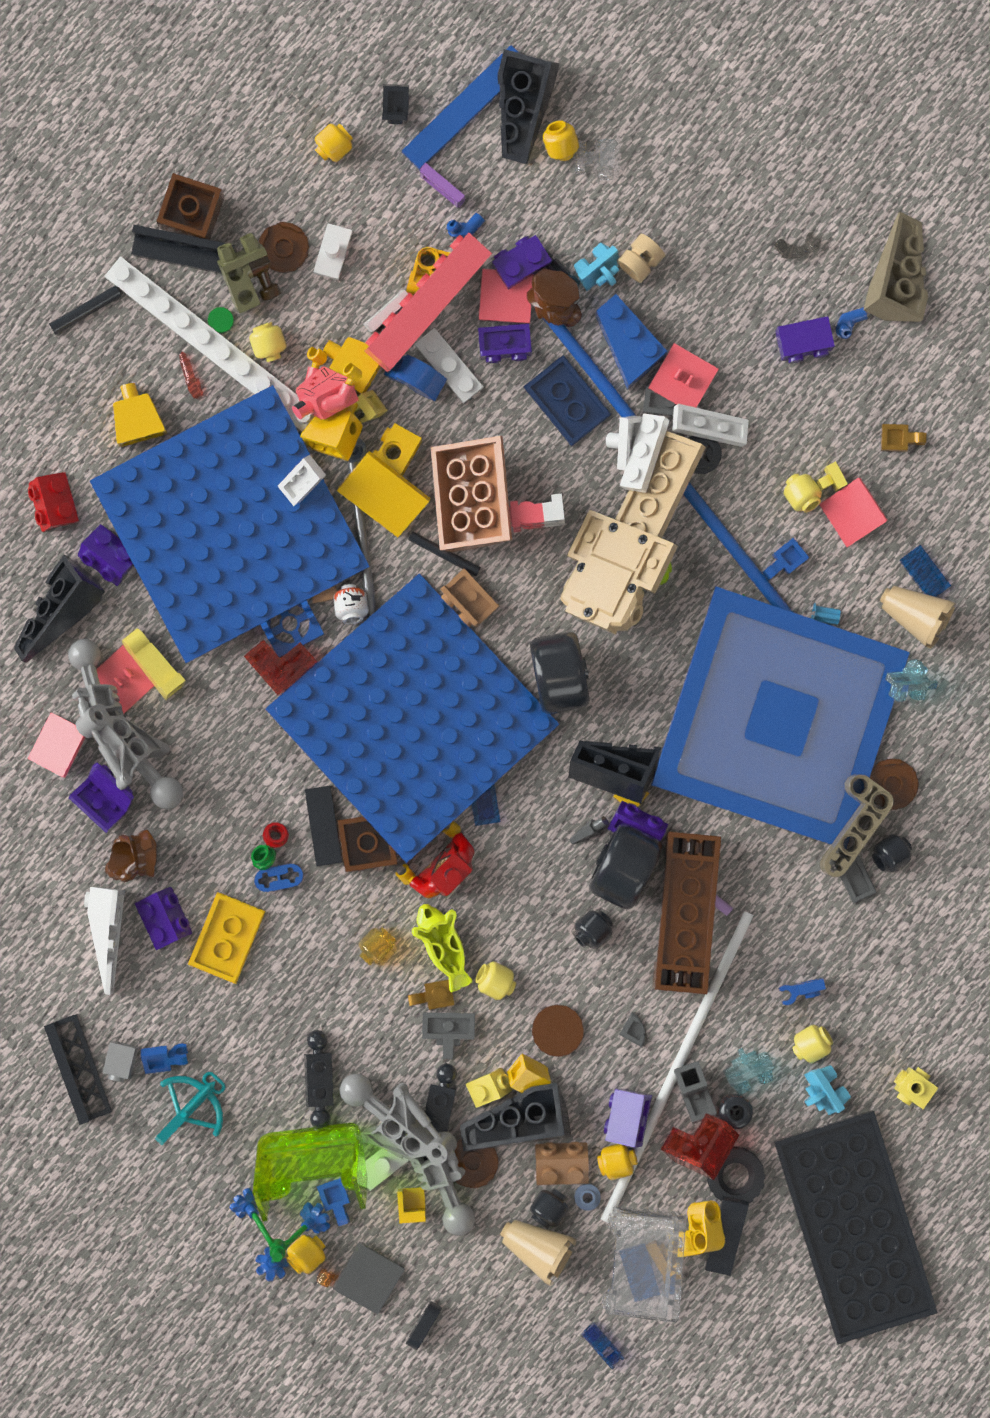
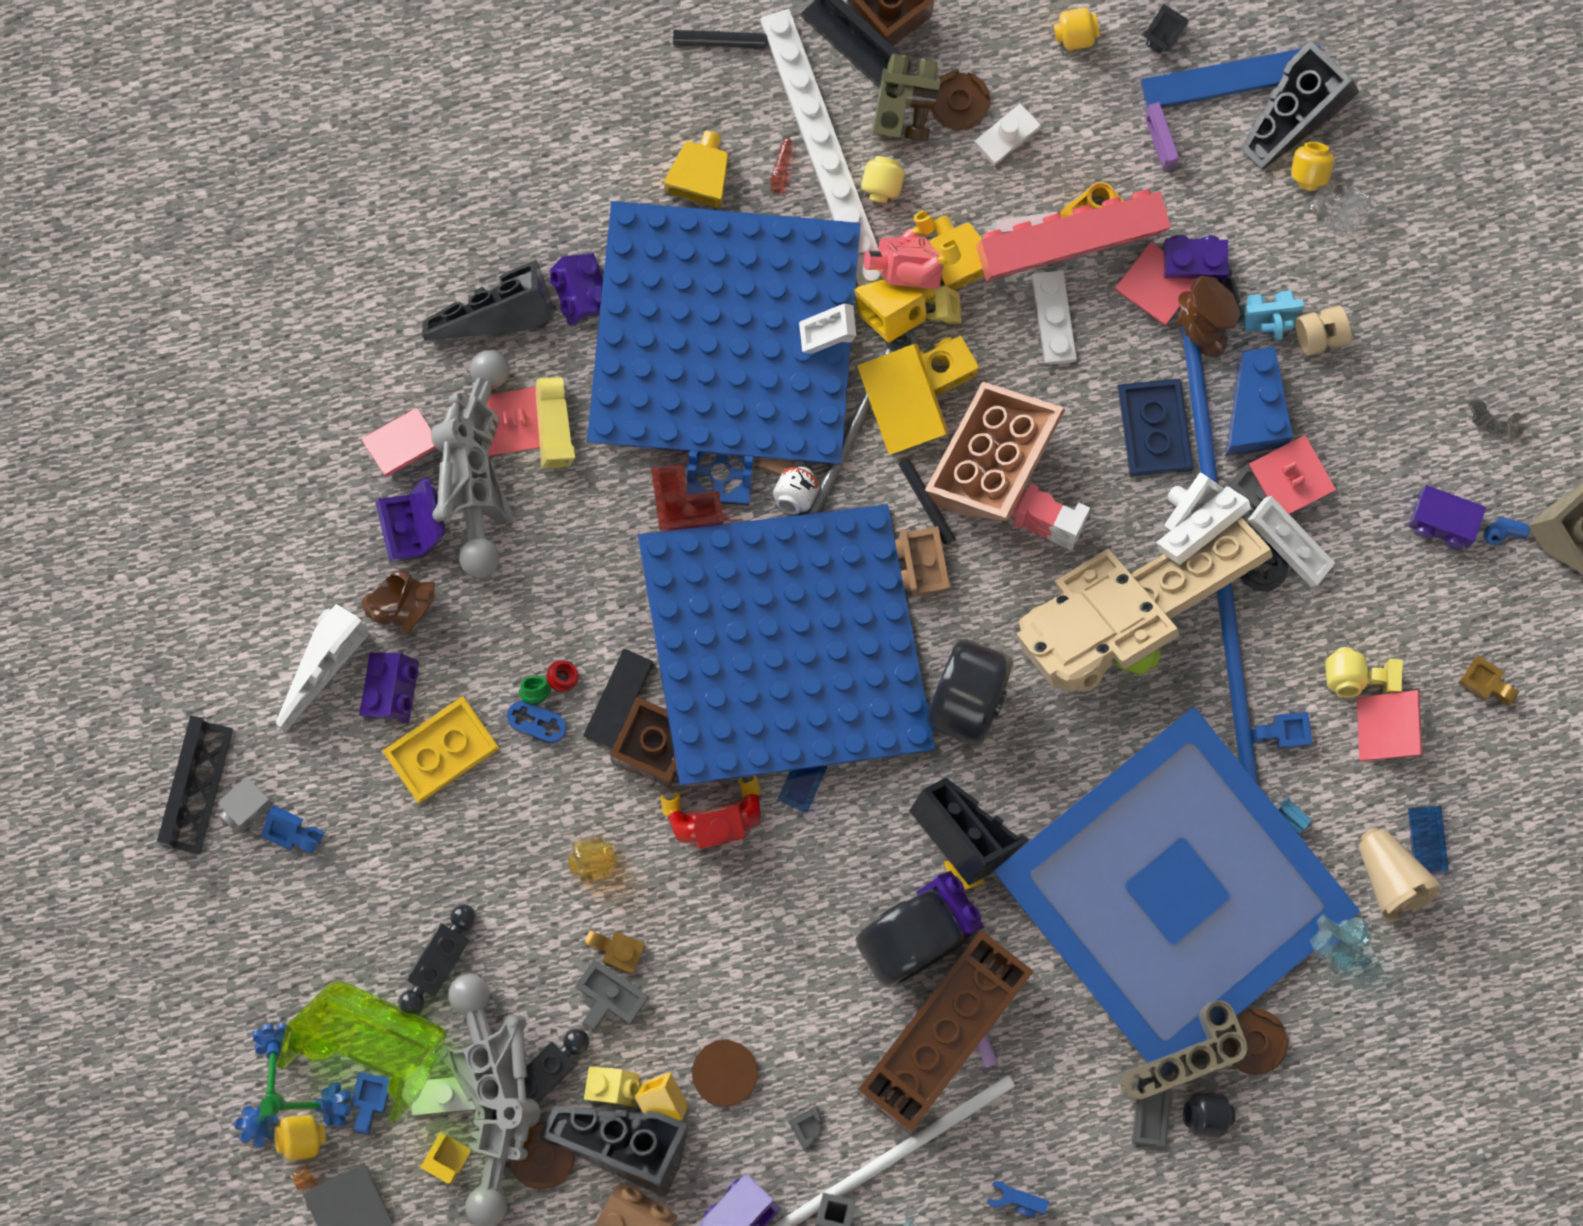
camera: 30 degrees right, 10 degrees down
(52, 501) = (560, 201): red bracket -> none
(205, 1092) = (270, 903): teal piece -> none
(221, 320) = (849, 131): green tile -> none
(417, 376) = (1015, 305): blue brick -> none
(442, 944) = (662, 900): neon yellow animal -> none
(460, 228) = (1169, 194): blue arm -> none
(495, 980) = (693, 975): light yellow head -> none
(505, 342) = (1126, 329): dark purple bracket -> none
(589, 830) = (896, 882): dark grey bar -> none
(593, 929) = (832, 988): black head -> none

